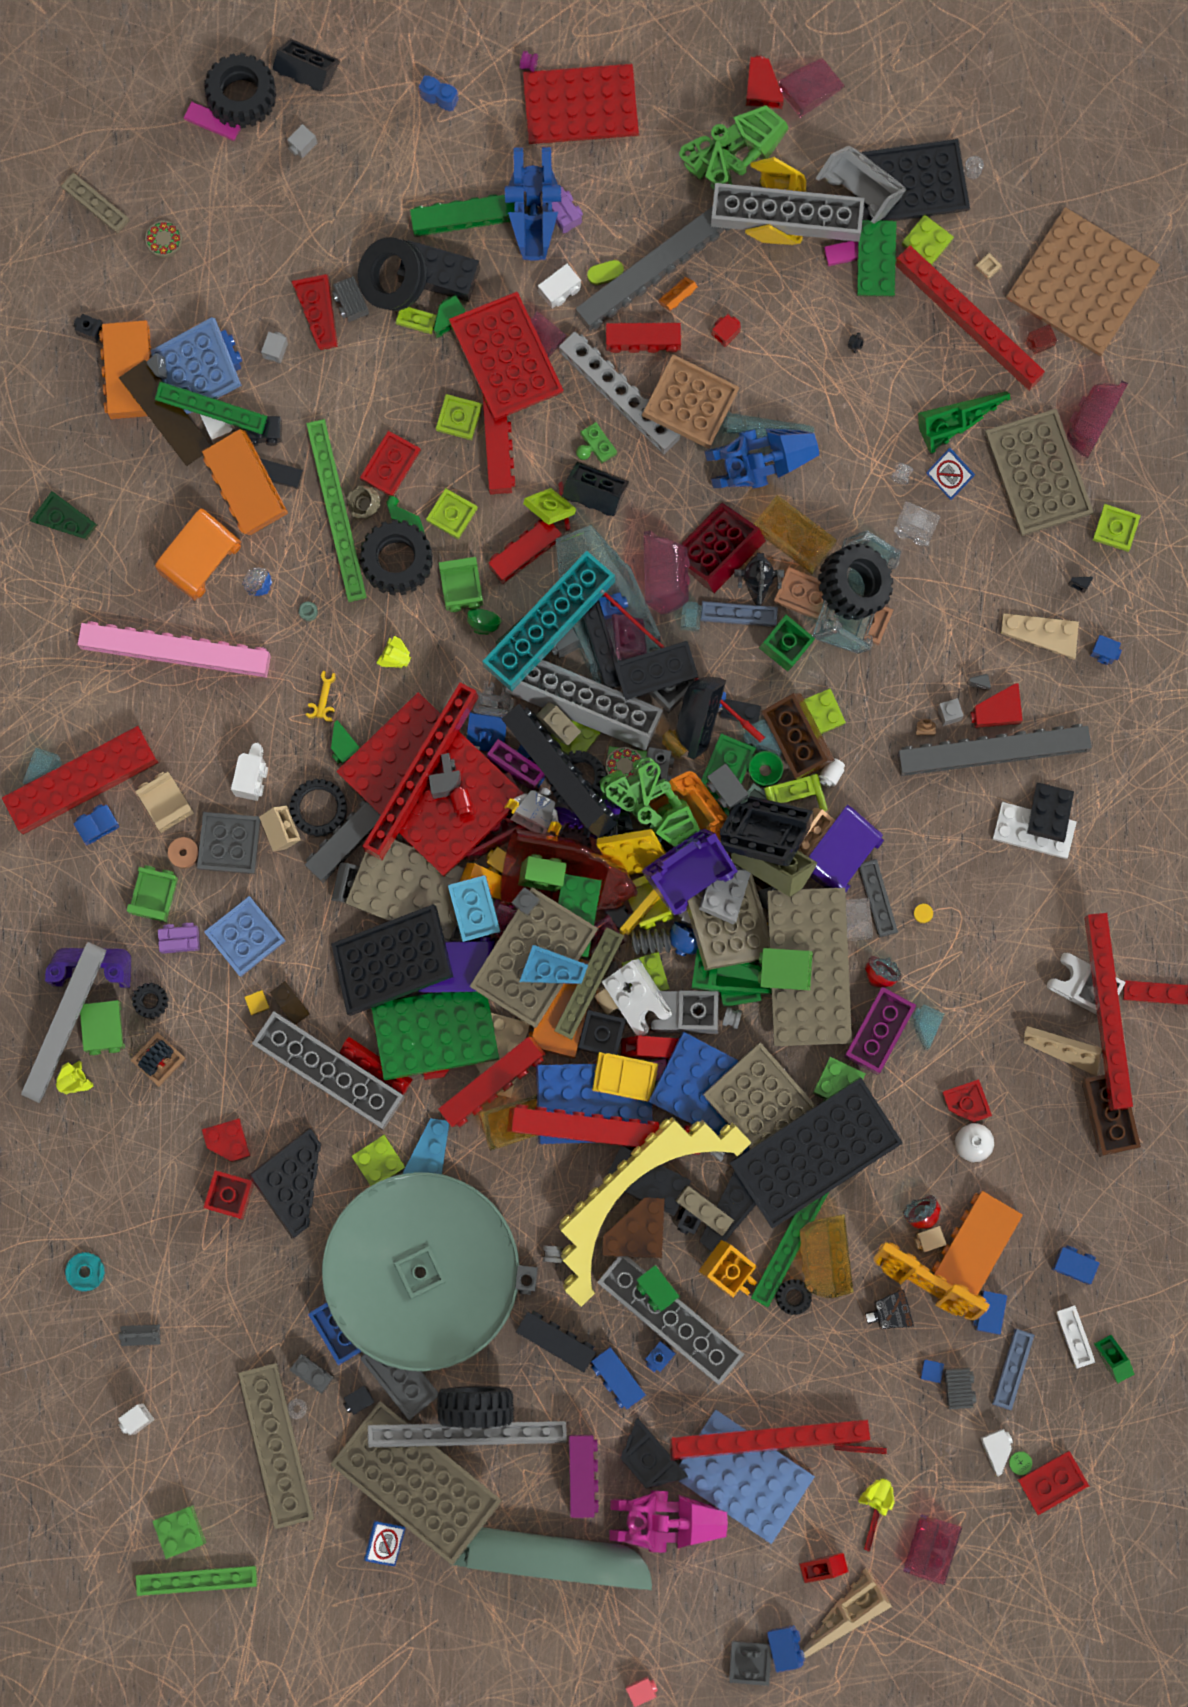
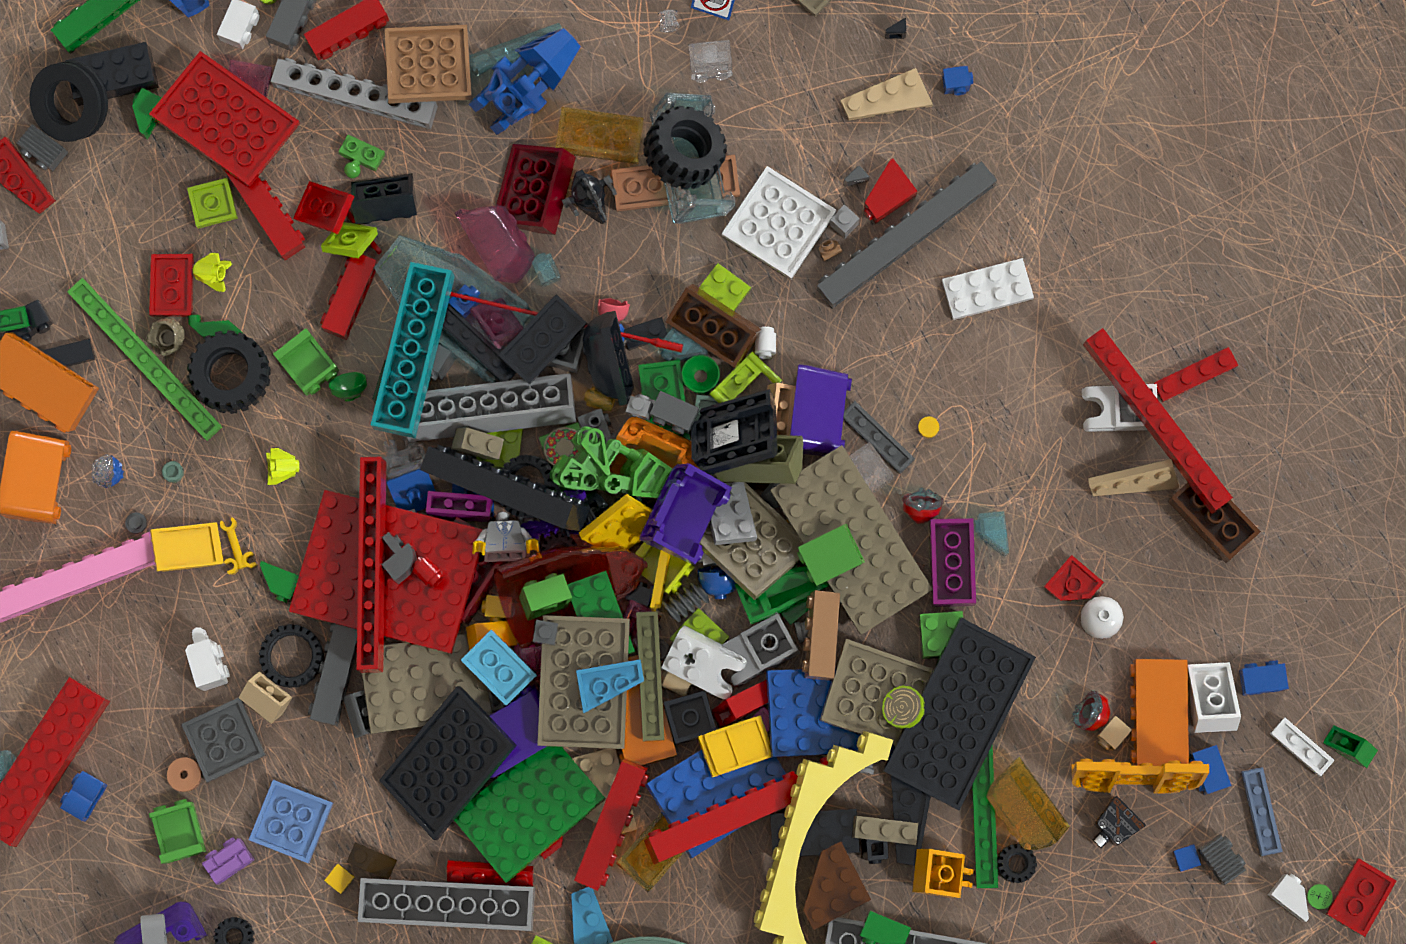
camera: 25 degrees left, 0 degrees up
(164, 801) = (137, 735): tan panel -> none
(257, 635) = (136, 523): none -> dark grey plate
(285, 676) = (186, 547): none -> yellow piece
(417, 320) = (118, 132): lime plate -> none
(427, 470) = (211, 271): none -> neon yellow brick
(452, 513) = (258, 300): lime plate -> none
(543, 469) = (323, 207): none -> red plate
(702, 767) = (640, 406): none -> light grey brick
(728, 675) = (609, 305): none -> coral hair
(739, 614) = (590, 241): sand blue tile -> none
(742, 1028) = (821, 636): none -> medium nougat brick
(758, 826) = (725, 434): none -> white sticker
(774, 1122) = (903, 707): none -> tile
(786, 643) = (652, 243): green brick -> none
(897, 683) = (779, 222): none -> white plate
(1026, 1257) = (1213, 698): none -> white slope
(1050, 812) = (993, 263): black plate -> none

